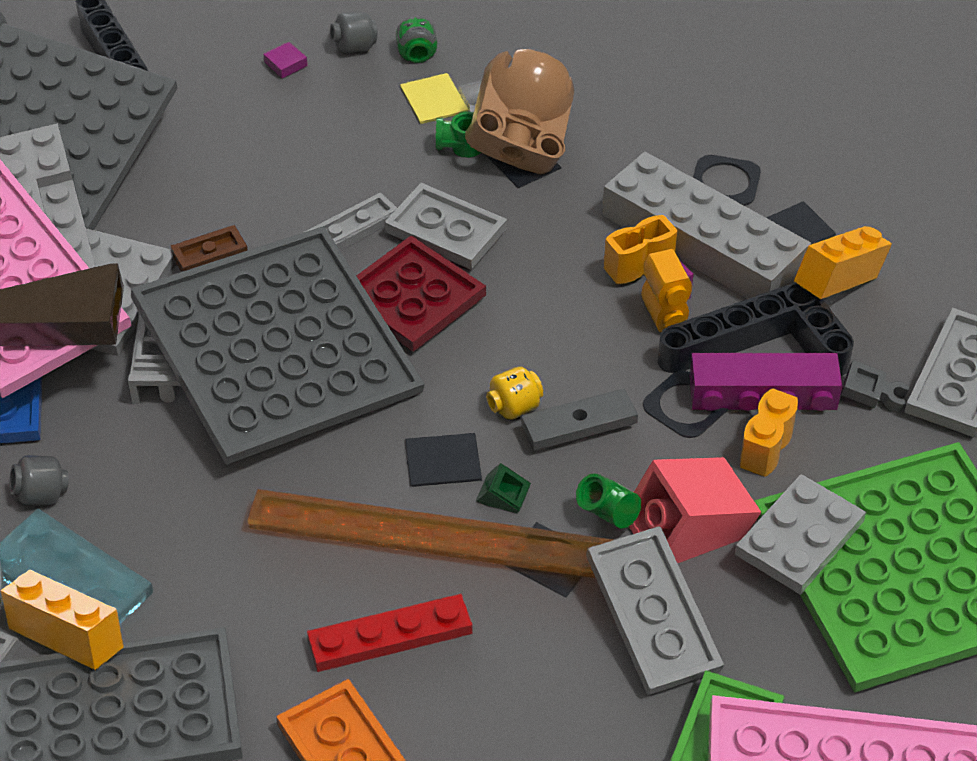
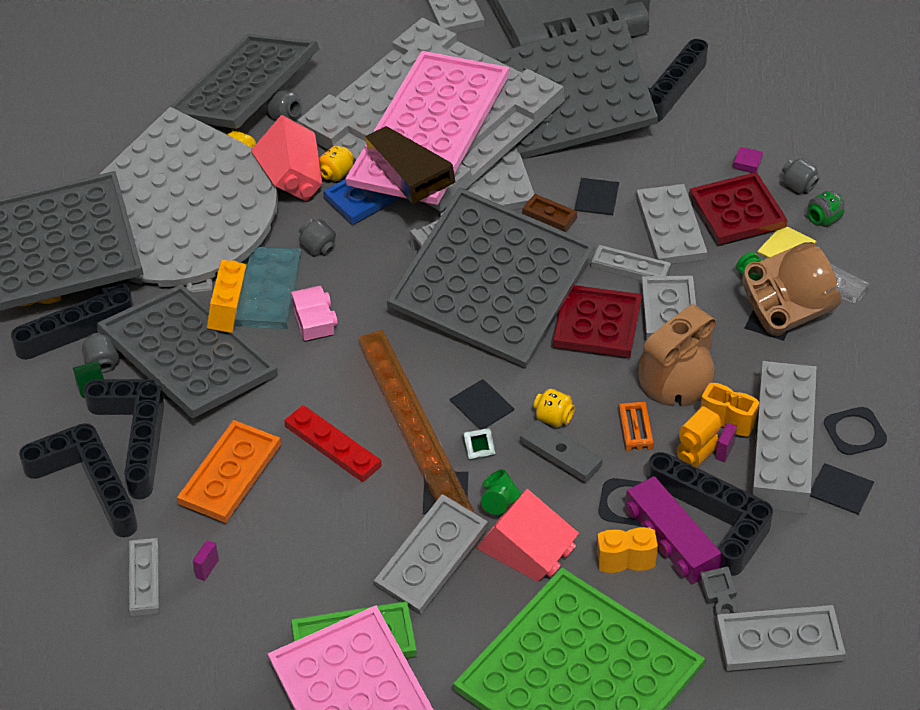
camera: 60 degrees right, 0 degrees up
(163, 547) = (313, 312): none -> bright pink brick
(215, 202) = (597, 196): none -> black window
(319, 164) = (671, 224): none -> light grey plate
(350, 101) = (737, 208): none -> dark red plate
(544, 251) = (679, 358): none -> medium nougat piece
(585, 344) = (637, 442): none -> orange tile
(800, 533) = (549, 601): light grey plate -> none
(842, 261) = (809, 519): light orange brick -> none

